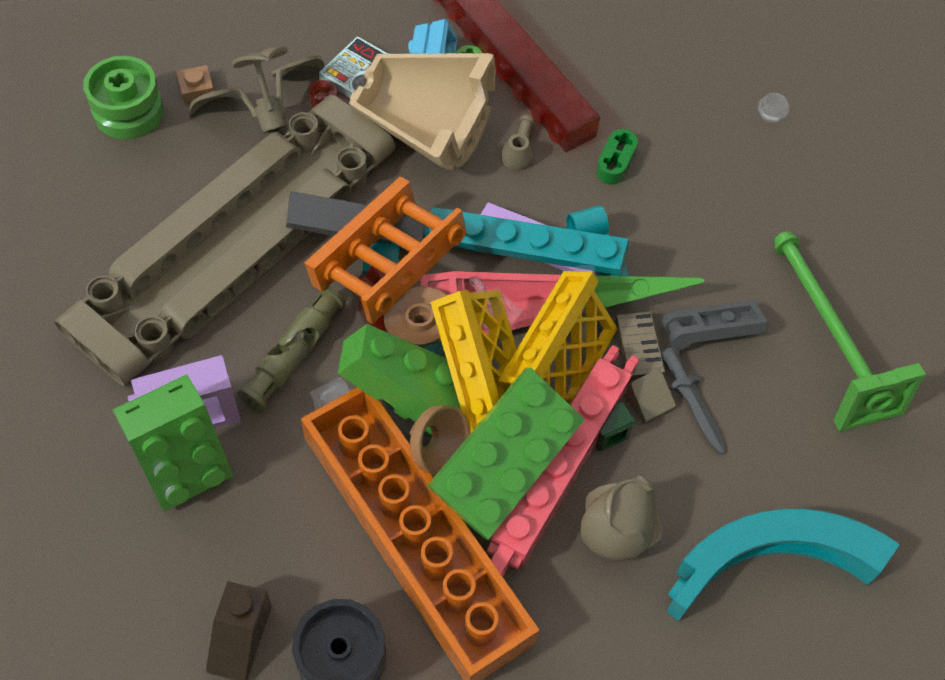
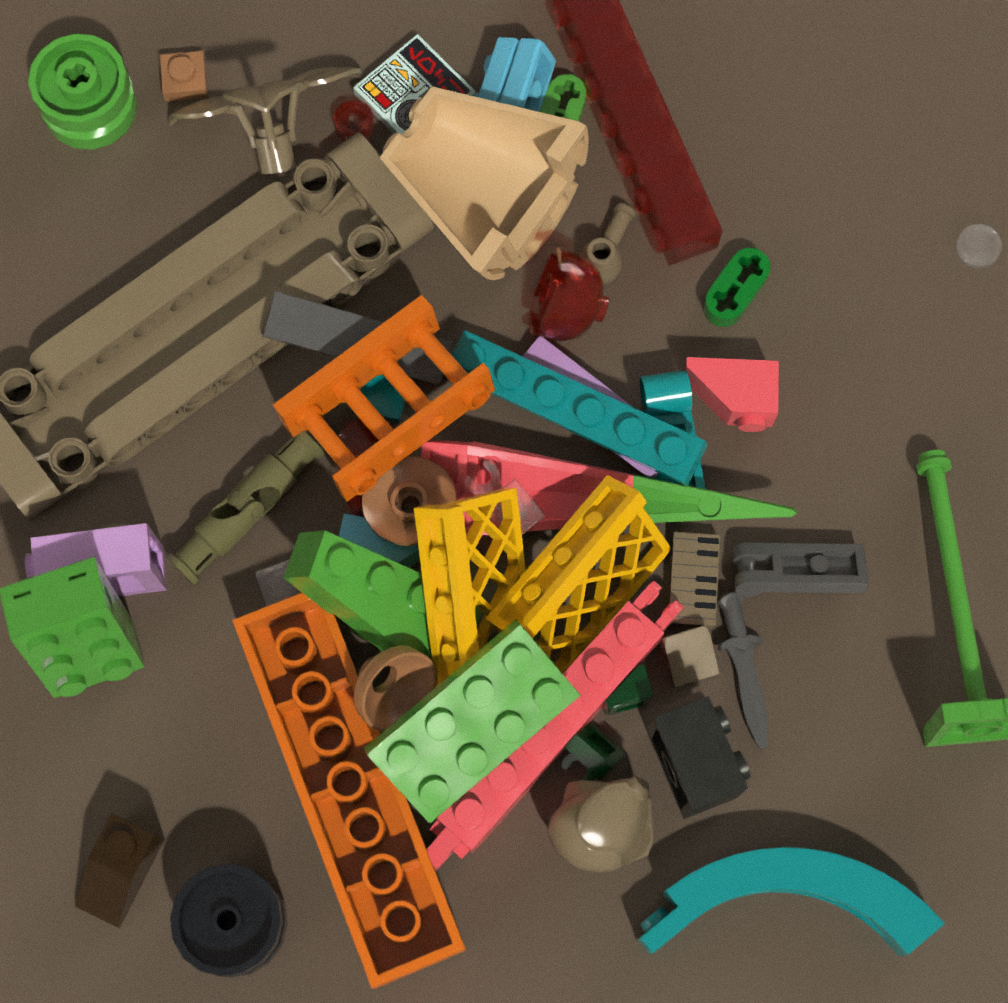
camera: 15 degrees right, 15 degrees up
(502, 173) = (568, 297): none -> clear red cylinder
(597, 473) = (593, 751): none -> dark green tile
(637, 215) = (737, 390): none -> coral slope
(680, 458) = (698, 756): none -> pearl dark grey brick

